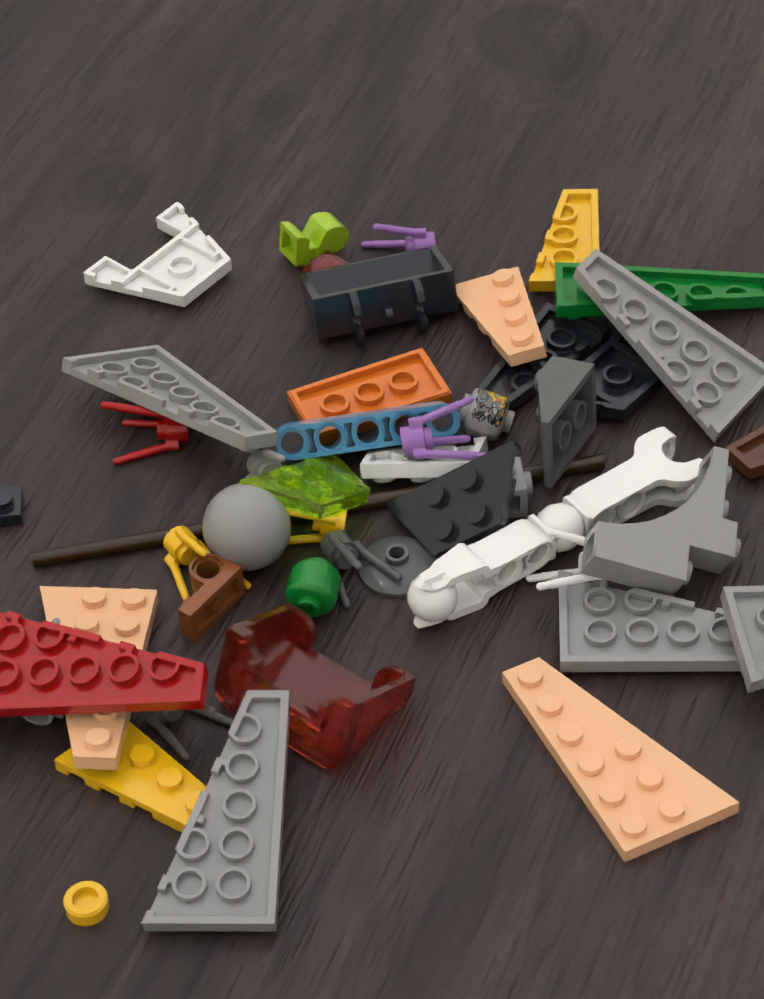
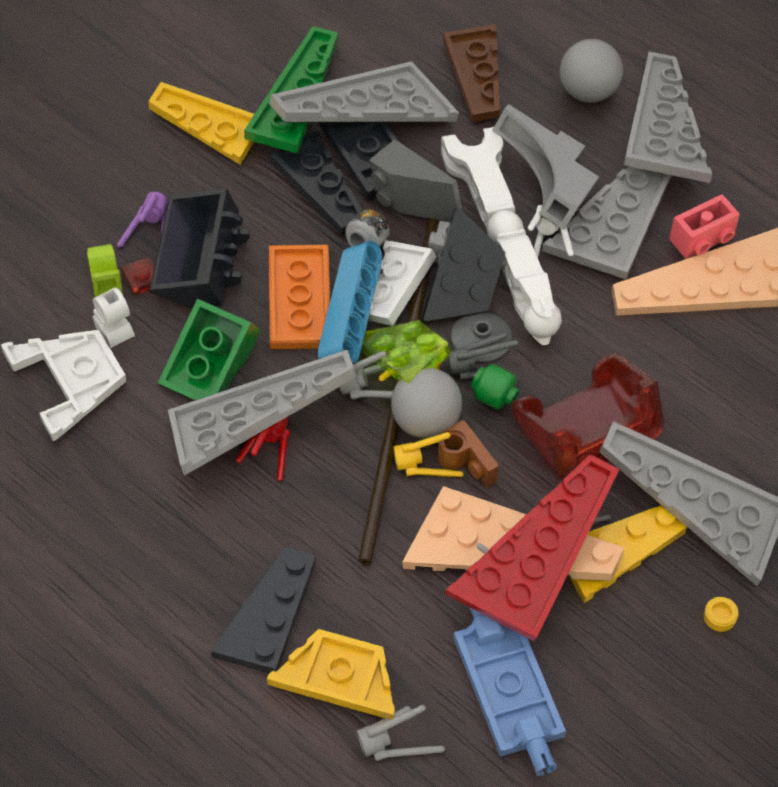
camera: 75 degrees left, 10 degrees up
(250, 346) = (208, 352): none -> green slope
(254, 264) = (110, 317): none -> white leg
(419, 441) = (390, 269): medium lavender plant -> none
(504, 314) = (274, 181): light nougat wing -> none
(677, 713) = (704, 227): none -> coral brick

